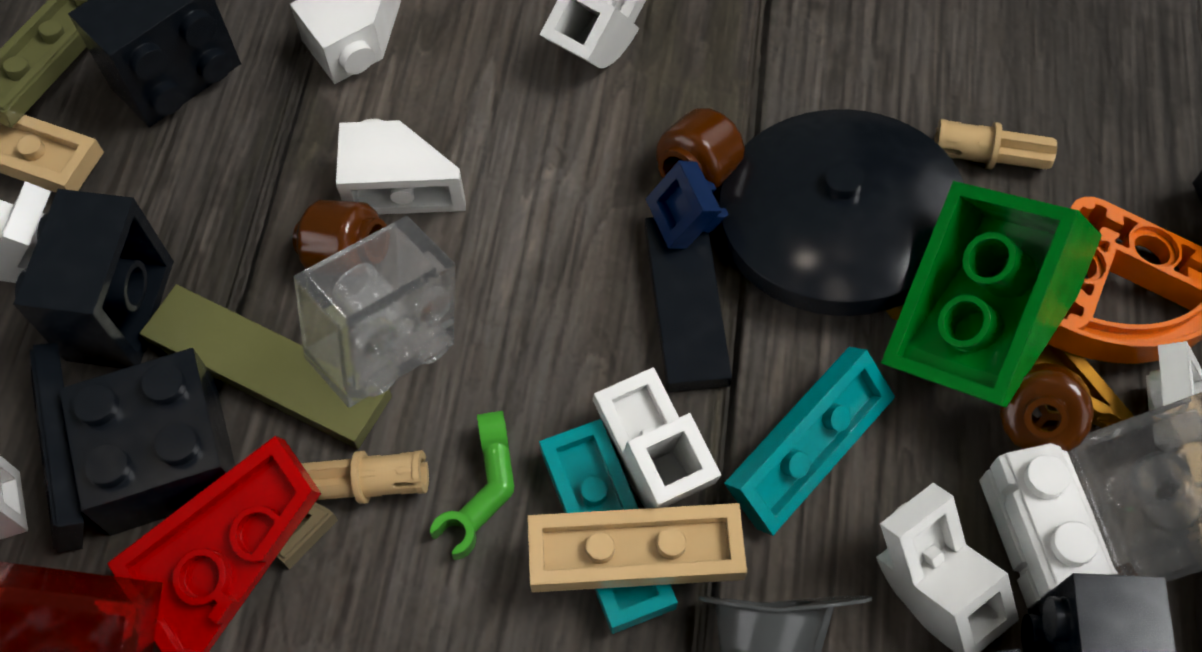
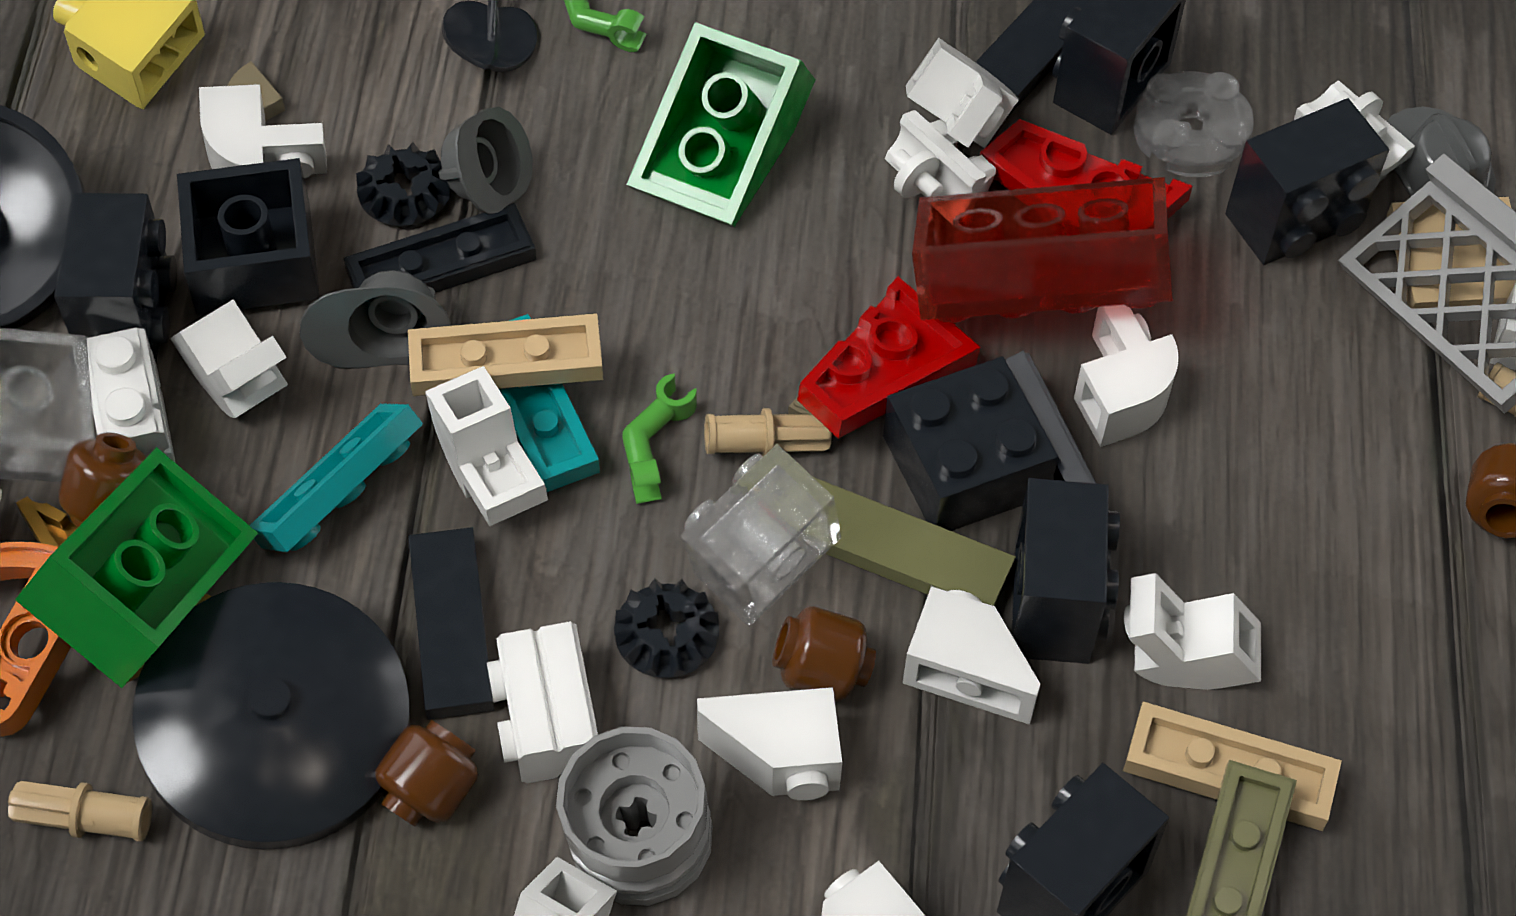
camera: 175 degrees right, 5 degrees down
(212, 236) = (970, 657): none -> white slope
(508, 298) = (647, 648): none -> black gear
(520, 87) = (628, 780): none -> light grey wheel
(597, 209) = (546, 699): none -> white brick
(685, 205) = (447, 682): dark blue tile -> none

